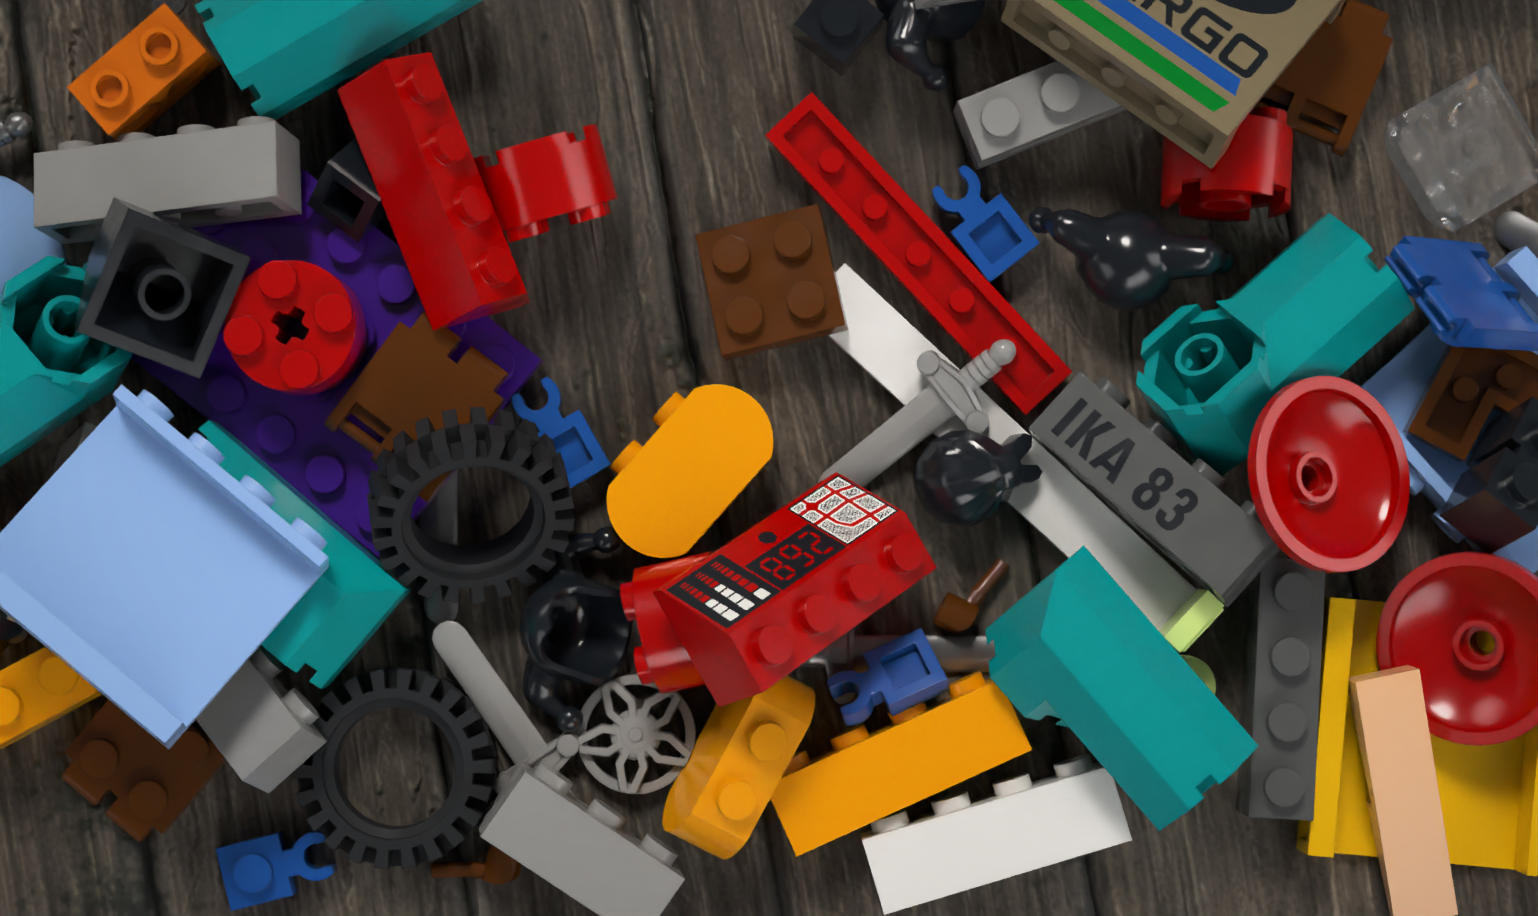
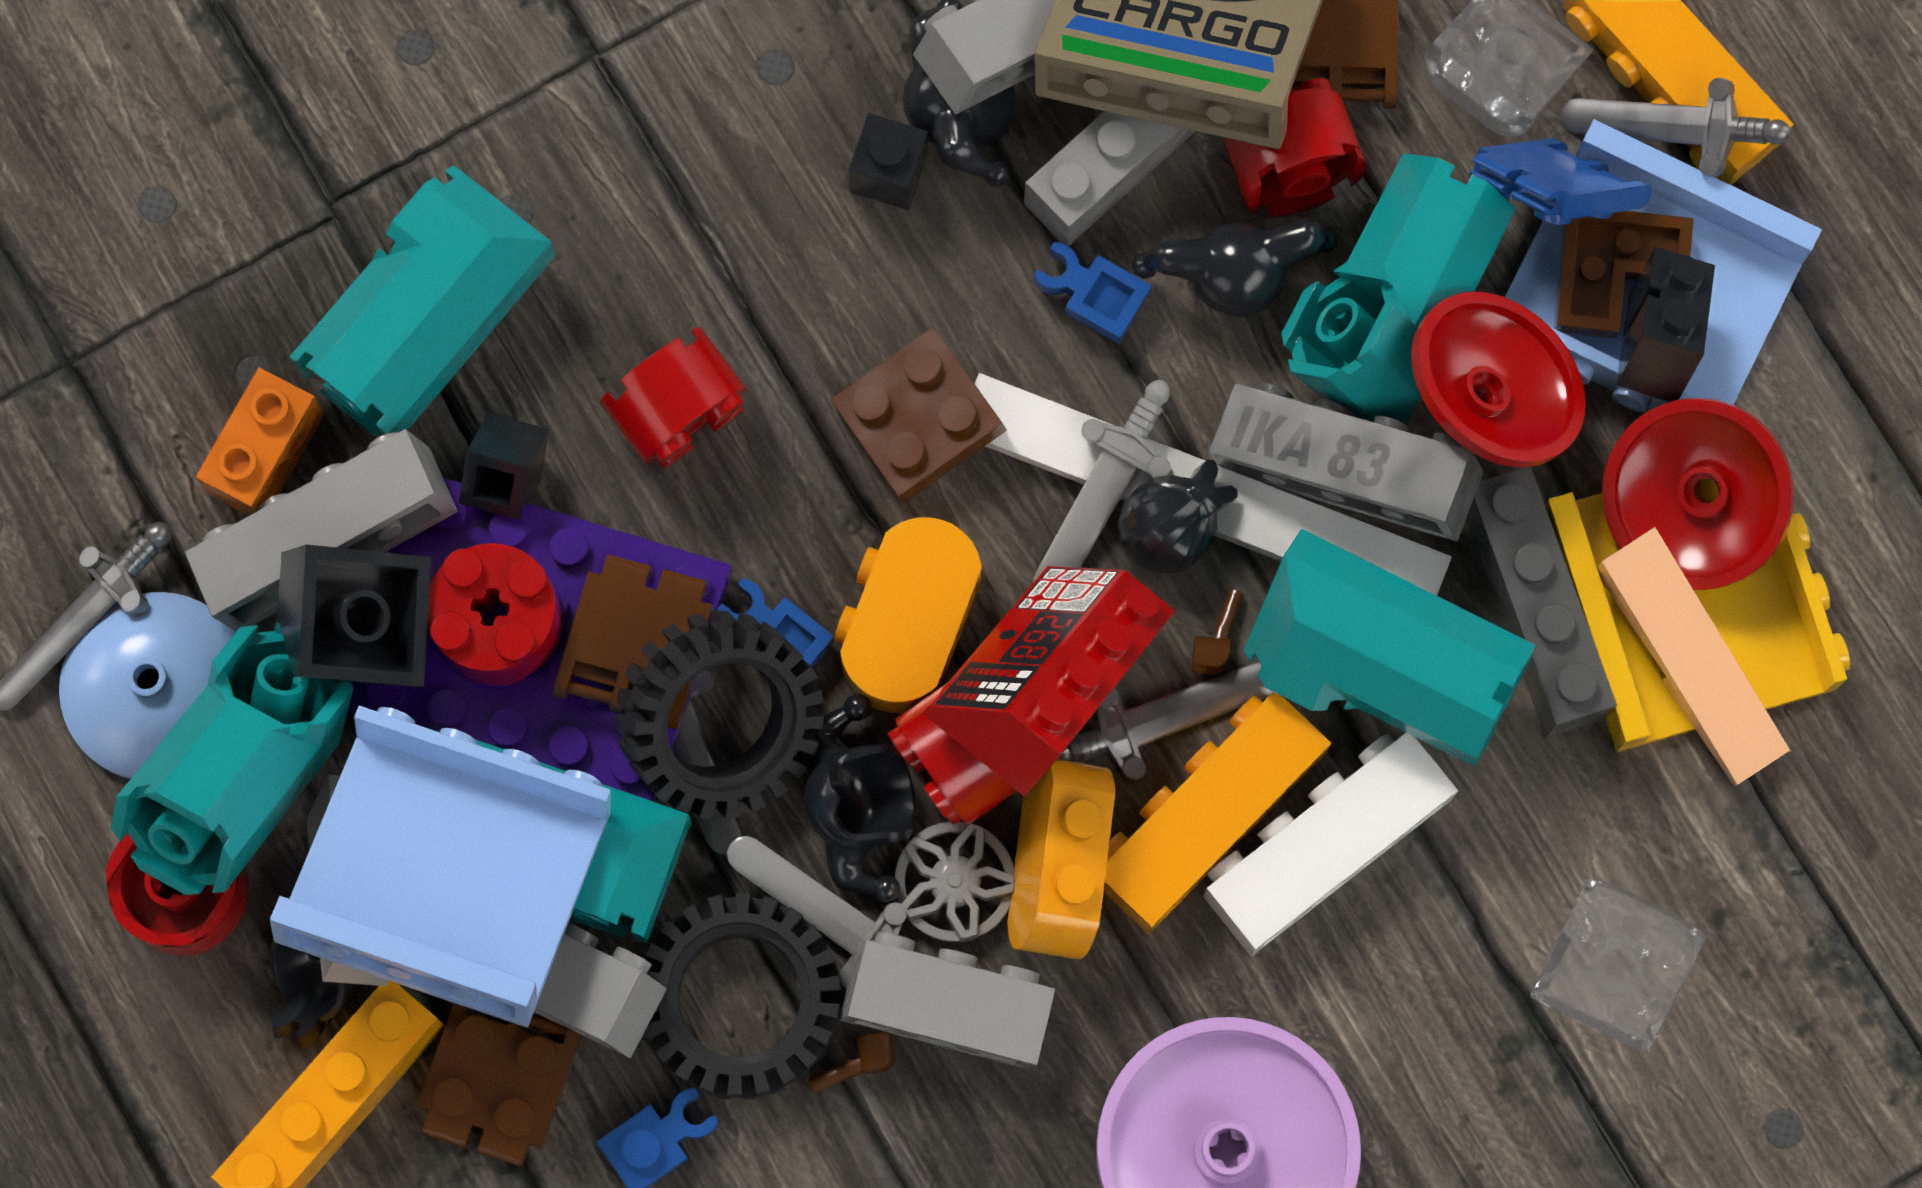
camera: 20 degrees left, 10 degrees down
(432, 191) = (576, 441): red slope -> none
(898, 673) = (1176, 725): blue plate -> none
(914, 250) = (1039, 337): red plate -> none
(1191, 619) = (1433, 562): yellowish green tile -> none

